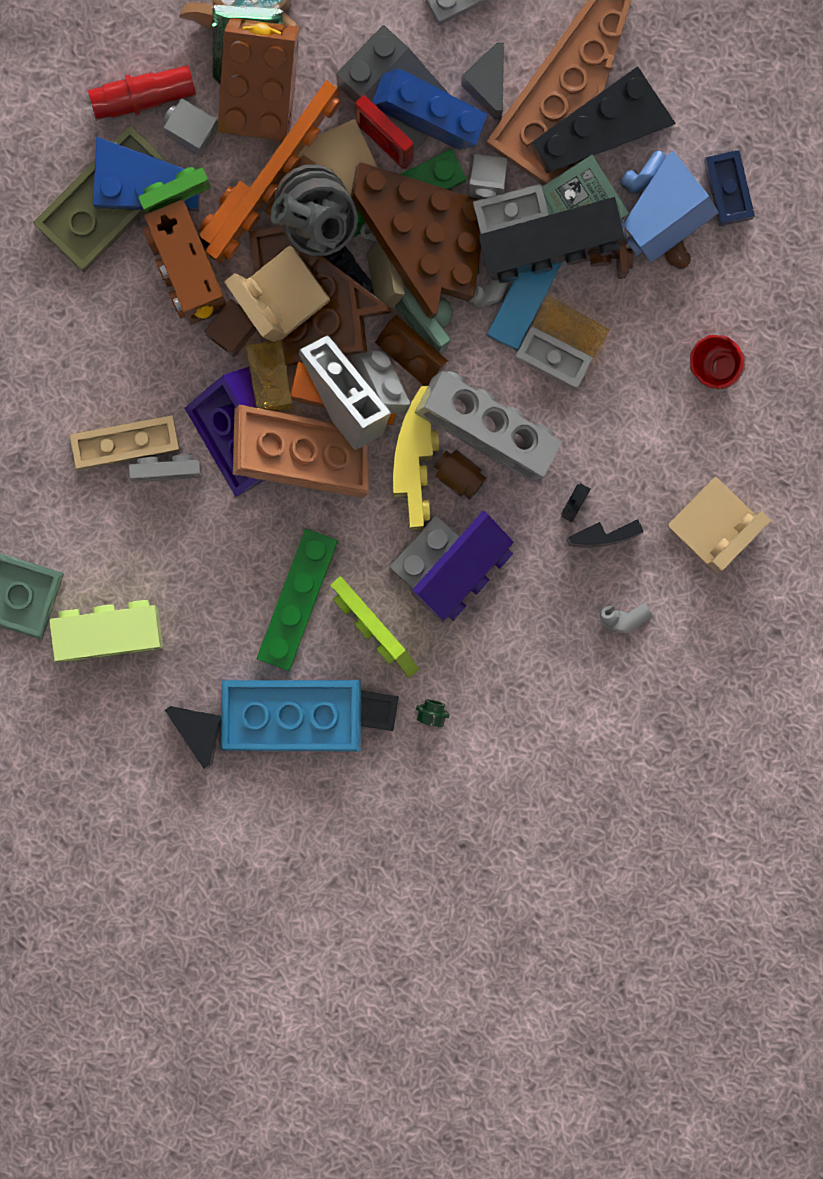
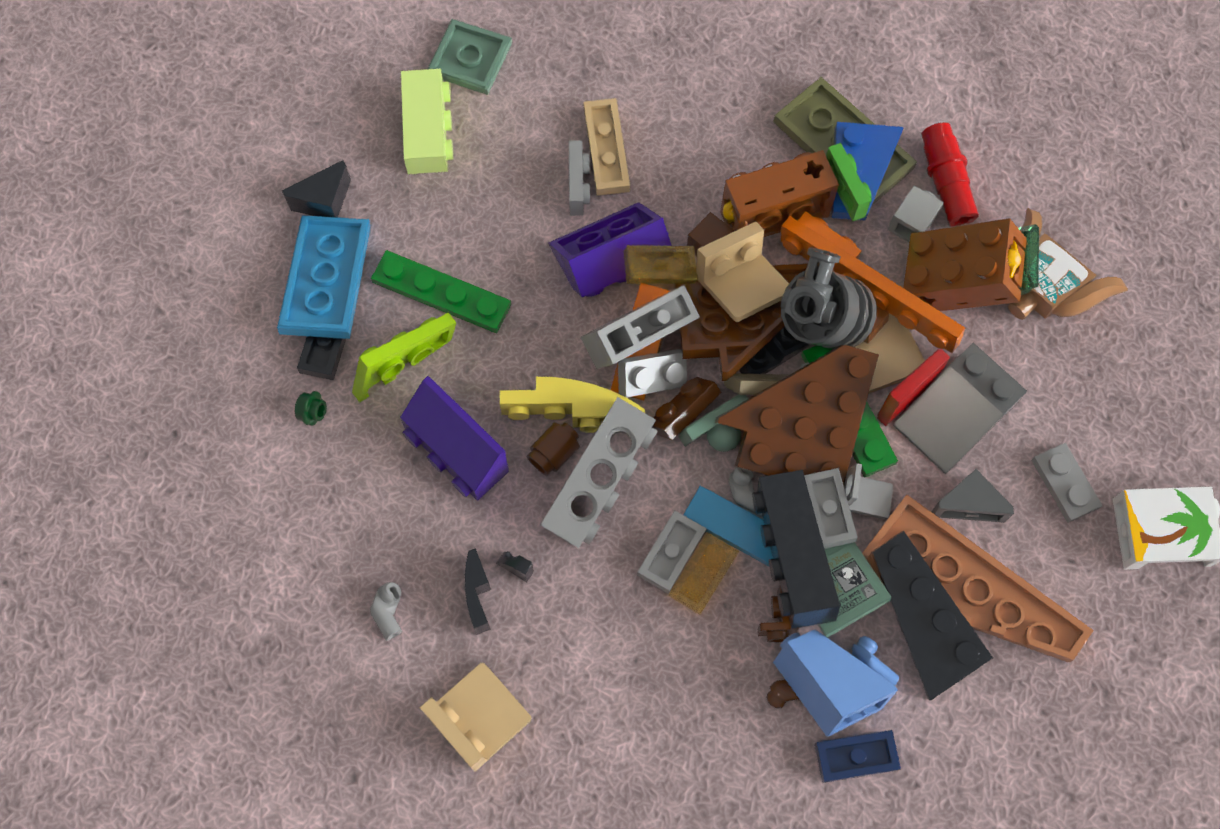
camera: 95 degrees right, 15 degrees down
(298, 452) = (581, 284): nougat tile -> none
(424, 551) = (481, 409): light grey plate -> none
(429, 109) = (937, 431): blue brick -> none
(729, 362) = (659, 712): red hair -> none

